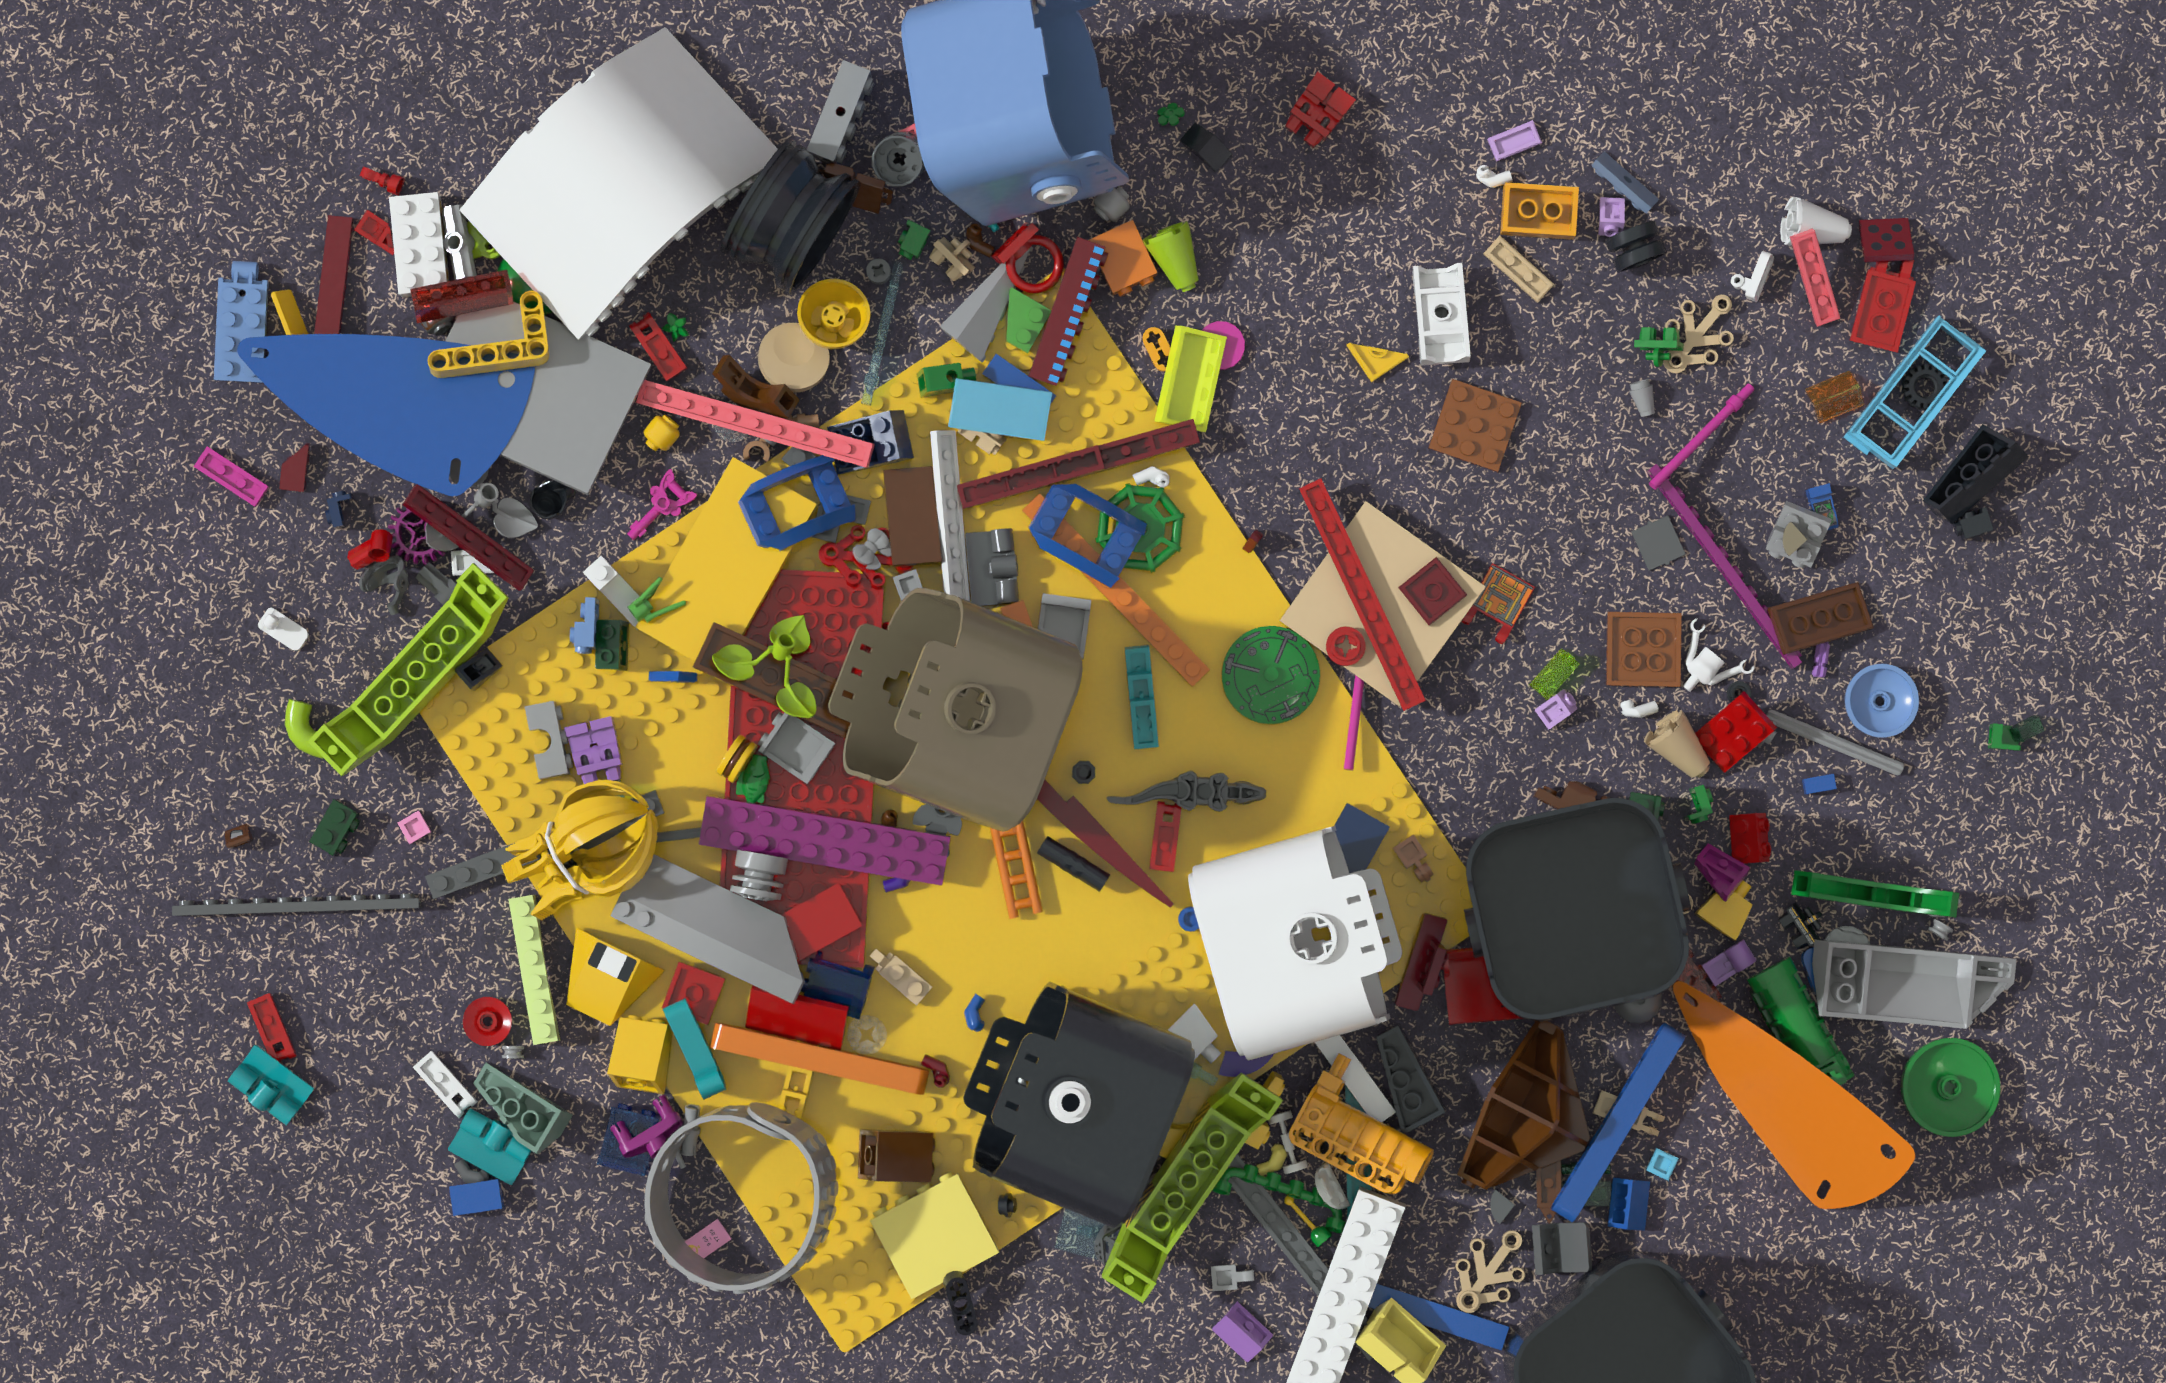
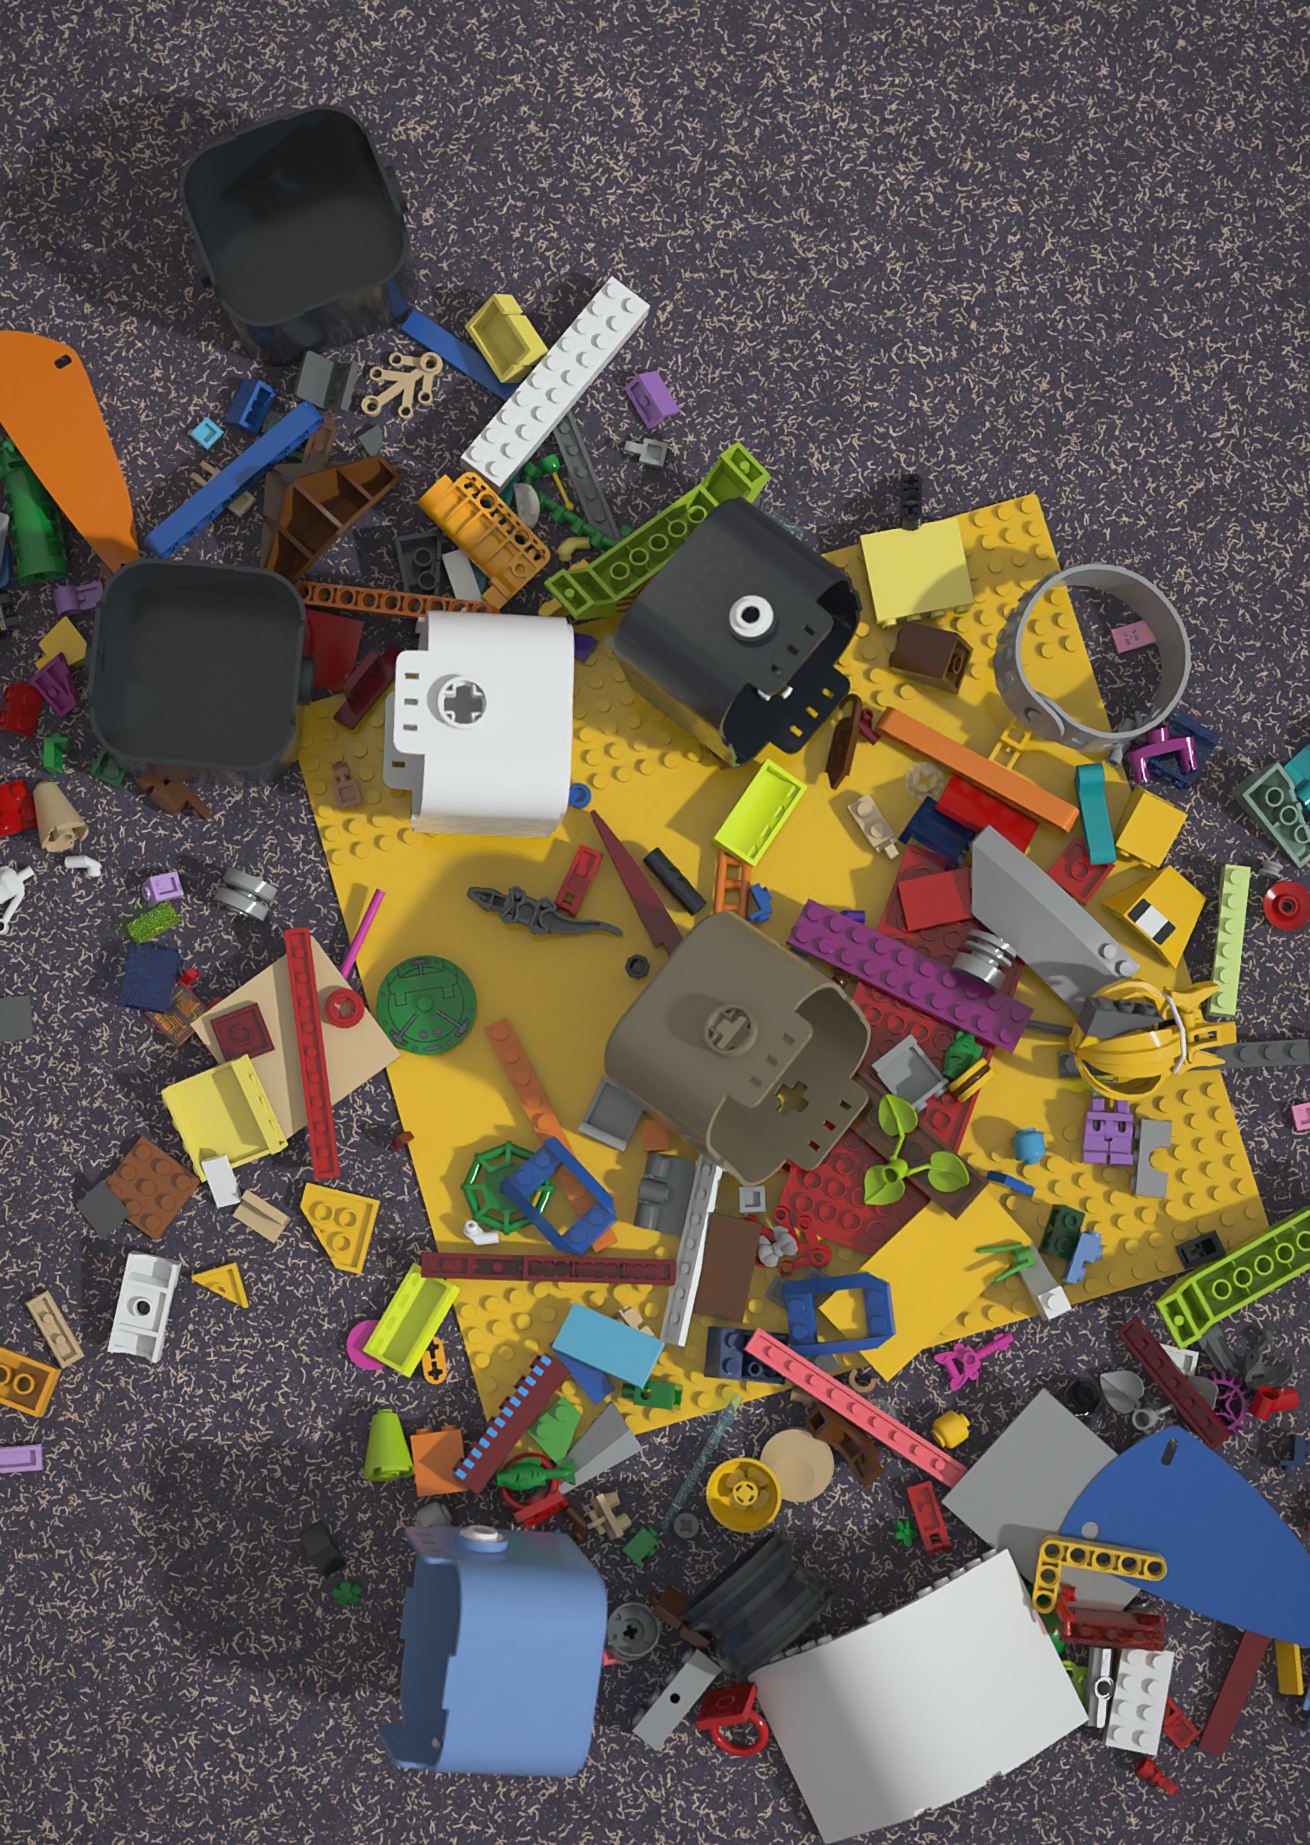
camera: 160 degrees left, 5 degrees down
(511, 315) = (1066, 1594): none -> red piece
(622, 847) = (1111, 1018): none -> dark grey slope
(666, 716) = (1028, 1146): none -> dark azure head
(787, 120) = (729, 1707): none -> red tile
(953, 1046) = (844, 743): none -> reddish brown plate
(972, 1013) = (817, 769): blue arm -> none
(986, 873) = (762, 899): none -> blue bracket
(1013, 953) = (759, 813): none -> neon yellow slope
(1036, 271) = (528, 1474): none -> green animal
(1141, 697) = (558, 1022): teal slope -> none
(1197, 1029) = (609, 684): white torso -> none
(1284, 447) = (341, 1224): none -> yellow plate
(1289, 1147) = (552, 535): white wheel -> none
(1336, 106) = (180, 1547): red hips -> none
(1359, 837) = (390, 823): dark blue tile -> none
(1361, 431) = (261, 1216): none -> tan panel
(1408, 452) = (221, 1180): none -> white tile
(1411, 1047) = (384, 601): none -> orange beam
(1425, 509) = (224, 1114): none -> light yellow panel
(1474, 722) = (244, 897): none -> light grey wheel
(1492, 179) = (51, 1427): white arm -> none
(1511, 391) = (103, 1209): none -> dark grey piece
(1537, 619) = (150, 979): none -> clear blue panel
(1643, 649) = (59, 919): dark orange plate -> none

